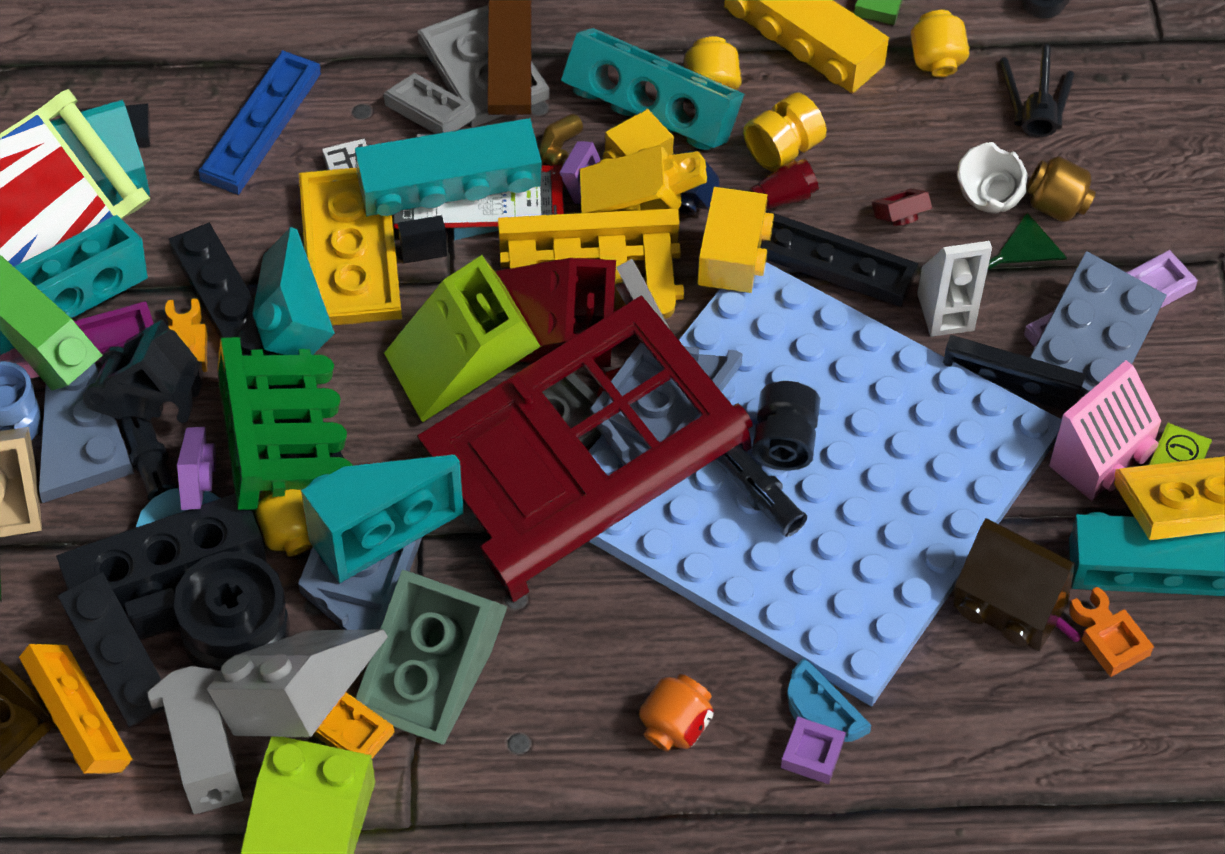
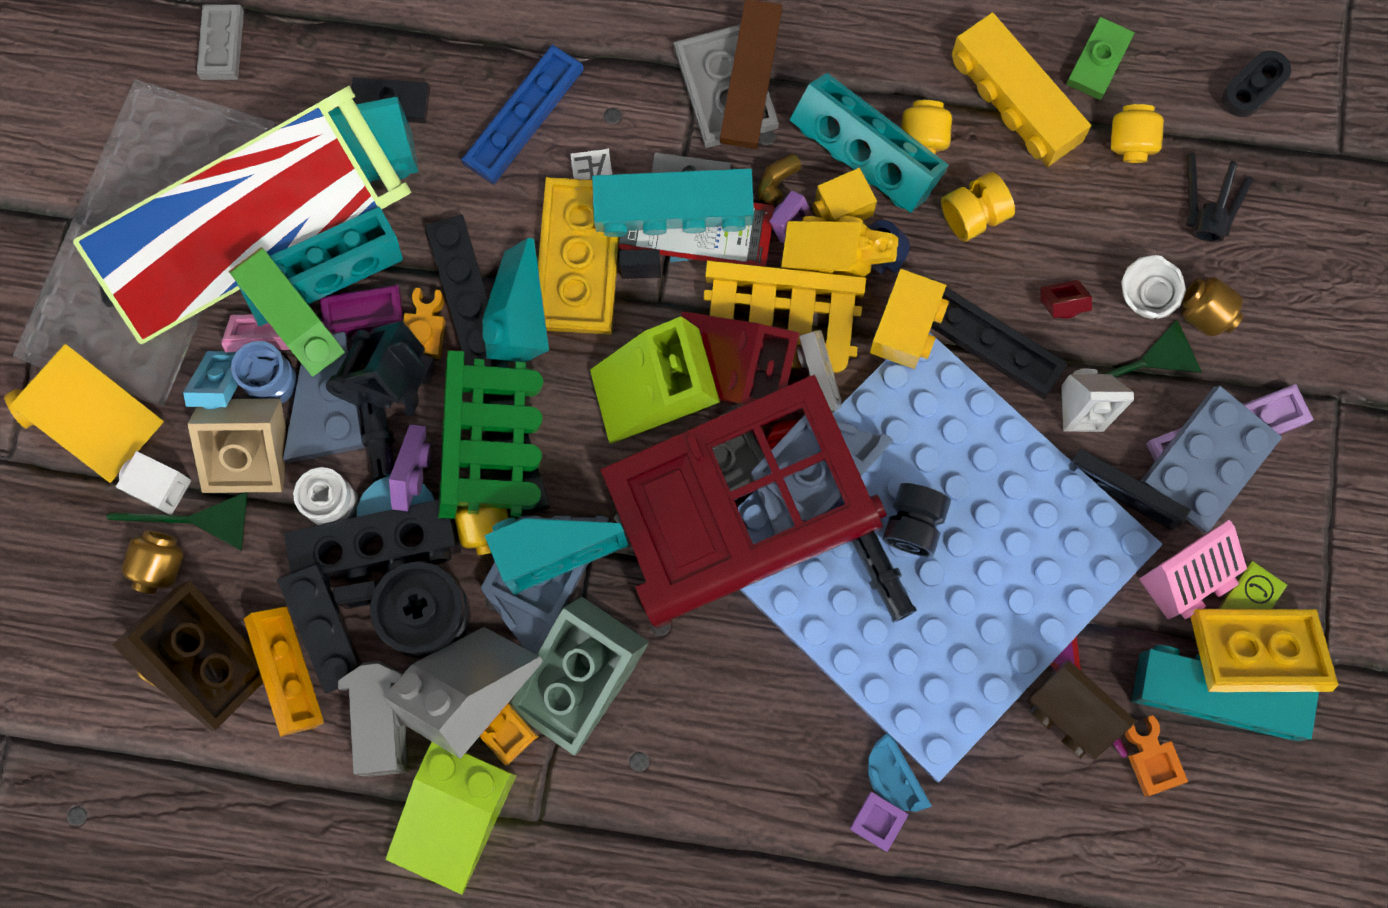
camera: 15 degrees right, 20 degrees up
(97, 509) = (325, 496): none -> white wheel
(429, 105) = (670, 124): light grey plate -> none
(676, 712) = (771, 767): orange head -> none
(788, 184) = (967, 260): dark red cone -> none

